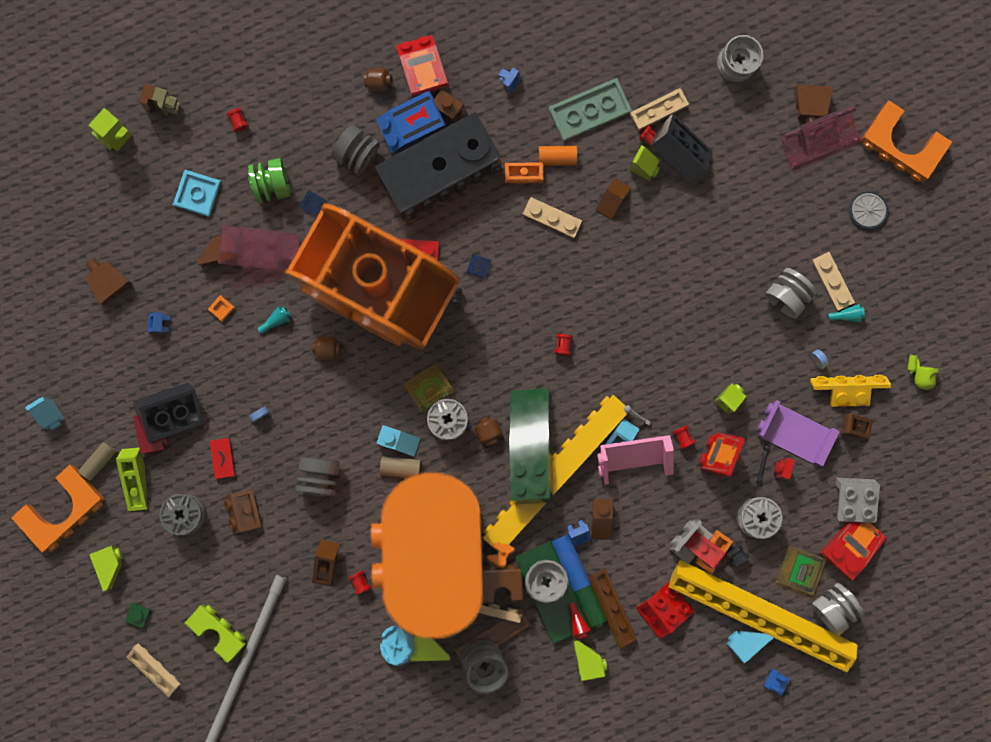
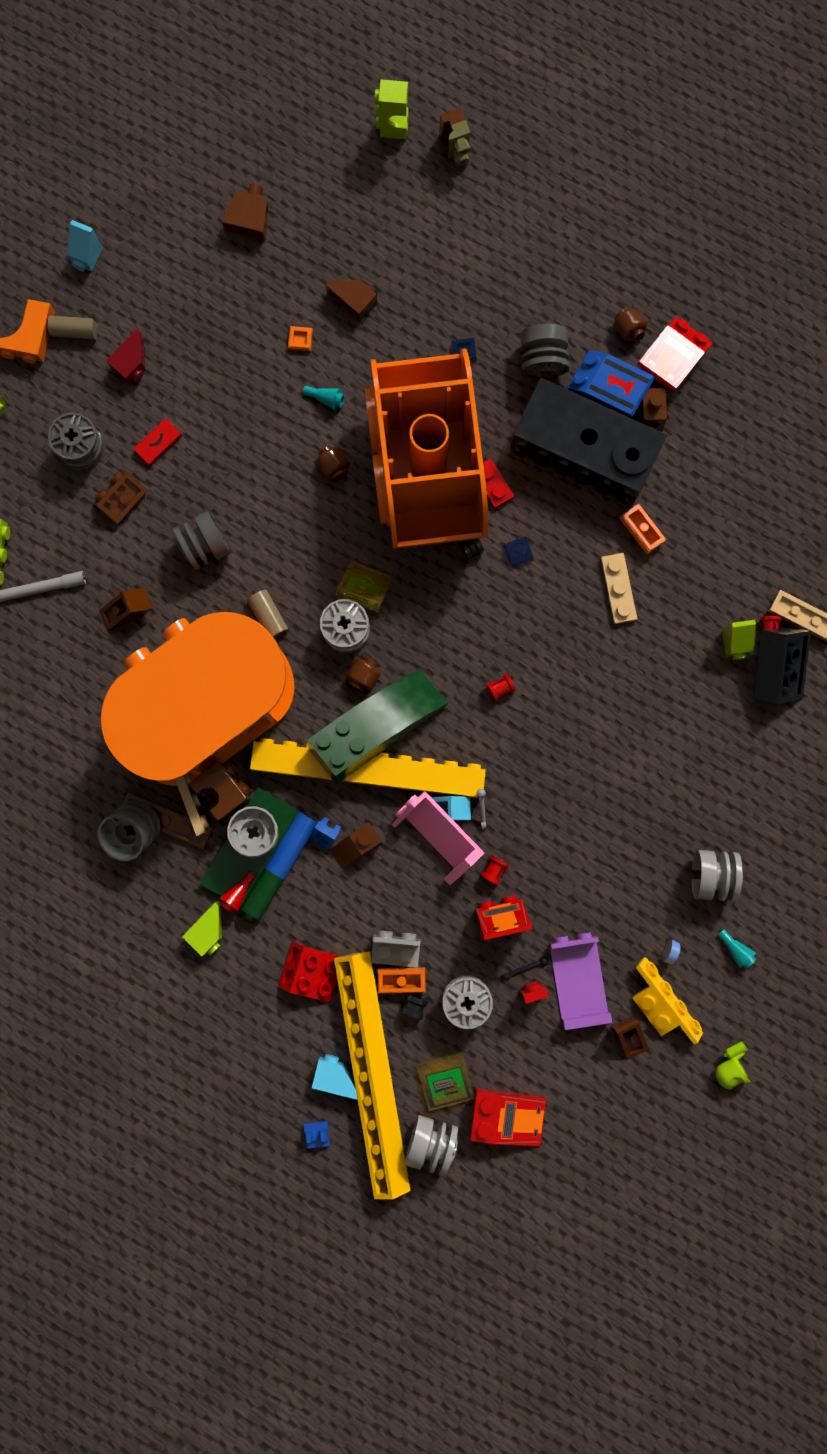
camera: 60 degrees right, 0 degrees up
(133, 478) = (79, 372): lime slope -> none
(155, 322) = (241, 287): blue tile -> none
(168, 412) = (163, 358): black slope -> none
(197, 193) = (394, 237): medium azure tile -> none
(237, 120) = (492, 223): red bush -> none
(257, 248) = (379, 324): clear pink piece -> none
(258, 414) = (223, 444): medium blue tile -> none
(269, 180) = (454, 291): bright green wheel -> none
(359, 582) = (127, 651): red bush -> none
(397, 645) = (88, 734): medium azure tile -> none
(398, 440) = (291, 594): medium azure slope -> none
(428, 650) = (108, 767): lime slope -> none
(500, 559) = (241, 771): orange piece -> none
(510, 79) = (725, 450): tile -> none
(558, 155) = (684, 550): orange brick -> none
(590, 109) = (753, 549): sand green tile -> none
(612, 198) = (681, 633): reddish brown slope -> none
(612, 608) = (275, 918): reddish brown tile -> none
(705, 549) = (395, 968): red plate -> none
(730, 398) = (567, 889): lime slope -> none
(833, 281) = (759, 911): tan plate -> none
(857, 499) = (556, 1089): light grey bracket -> none

